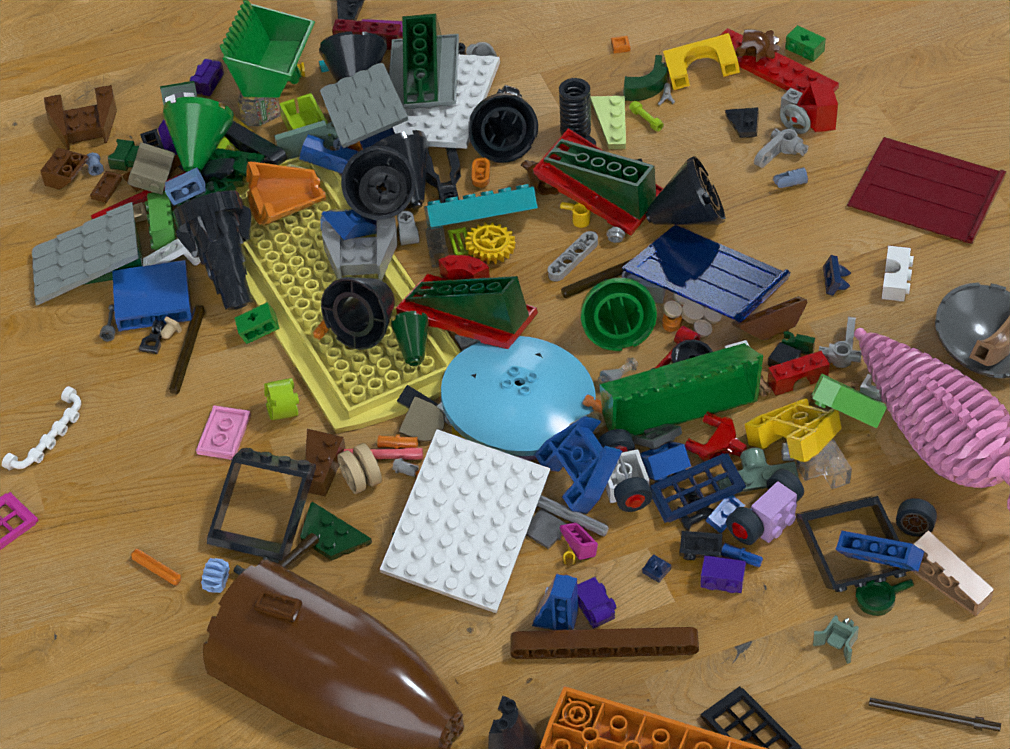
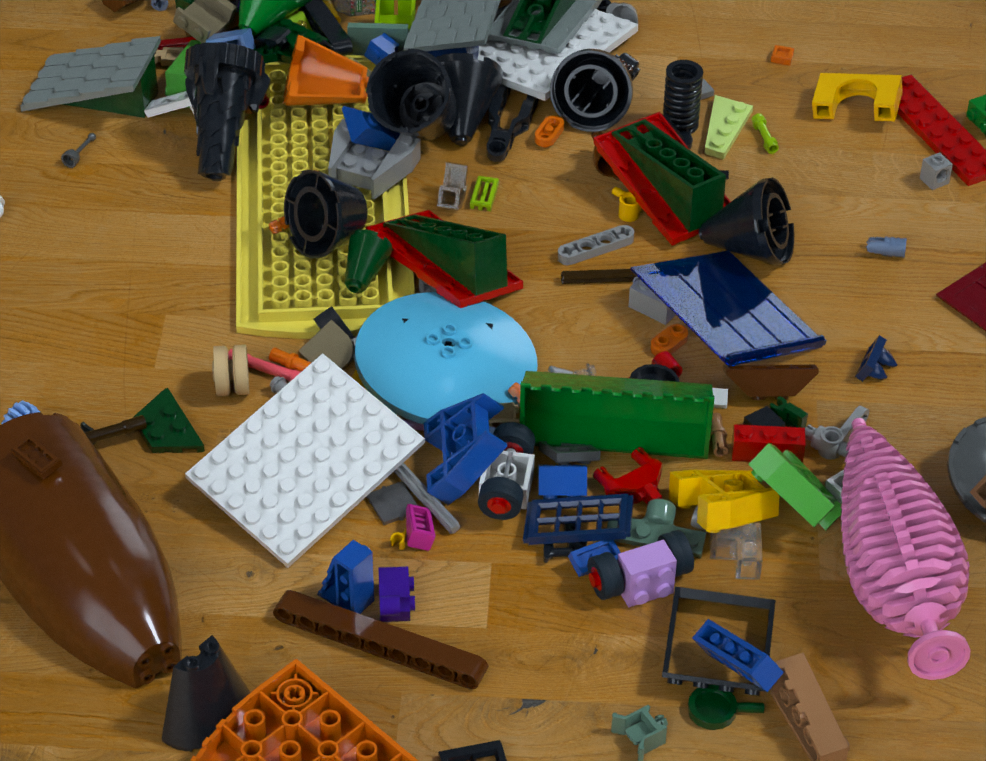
camera: 20 degrees right, 5 degrees down
(106, 186) = (157, 23): reddish brown plate -> none
(151, 295) = (136, 137): blue brick -> none
(157, 327) = (122, 171): black piece -> none
(170, 327) = (134, 174): tan piece -> none
(186, 349) = (138, 200): dark brown axle -> none
(223, 432) = (124, 291): bright pink tile -> none
(253, 545) = (167, 347): black window -> none
(257, 323) = (221, 197): green brick -> none
(281, 399) = (197, 277): lime brick -> none
(323, 451) = (194, 354): reddish brown wedge -> none
(407, 229) = (434, 159): light grey piece -> none
(462, 267) = (466, 213): red brick -> none
(480, 207) = (522, 161): teal brick -> none
(490, 243) = (513, 201): yellow gear -> none
(615, 234) = (654, 238): light grey plate -> none
(618, 314) = (597, 311): green cone -> none
(646, 86) = (785, 104): dark green arch -> none
(656, 568) = (486, 585): dark blue tile -> none
(666, 94) = (801, 119): light grey bar -> none
(693, 314) = (687, 344): tan piece -> none
(700, 544) = (547, 580): black bracket -> none
(723, 574) = (553, 618): dark purple brick -> none
(741, 554) = (587, 607): blue axle -> none
(744, 121) = (871, 172): black wing -> none
(758, 44) = (928, 97): reddish brown piece -> none
(782, 141) = (902, 206): light grey piece -> none
(814, 110) = (954, 182): red piece -> none
(895, 283) = (954, 374): white arch -> none
(916, 517) = (807, 636): black wheel -> none

